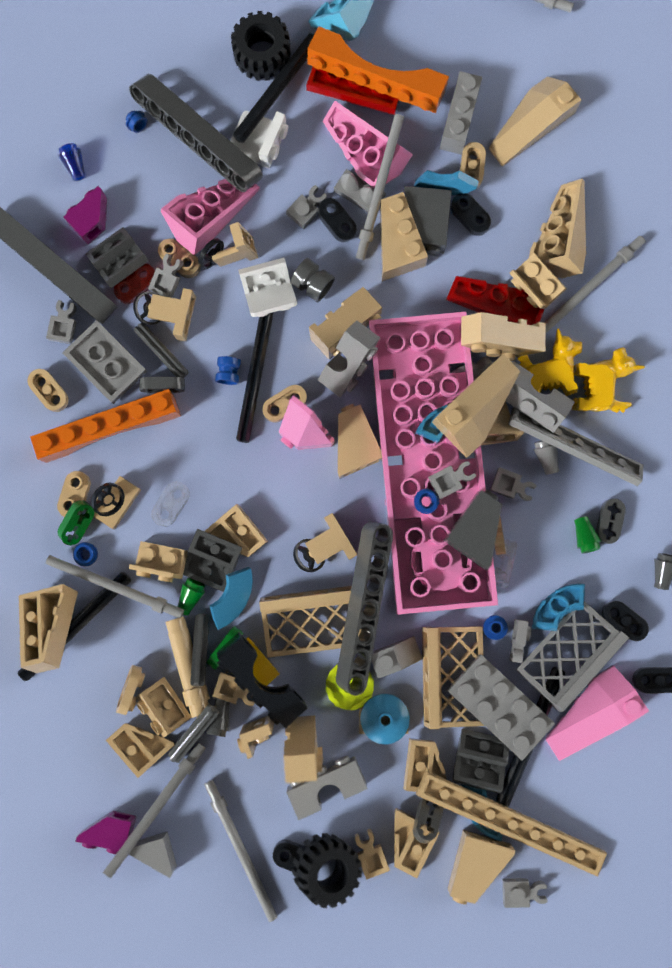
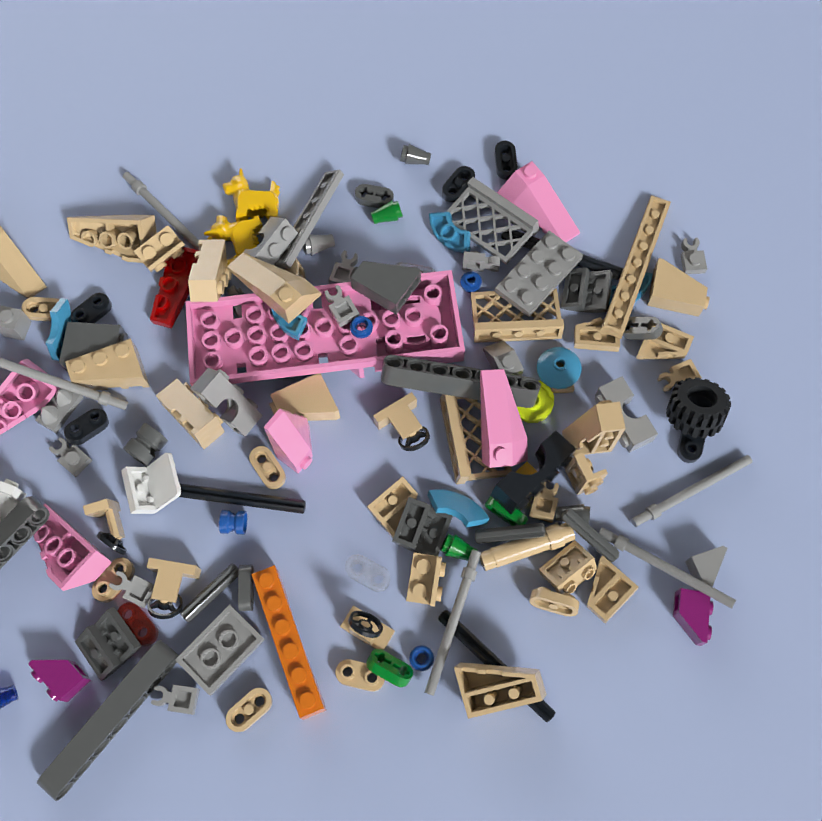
camera: 95 degrees left, 15 degrees down
(312, 649) = (501, 426): none -> bright pink wedge

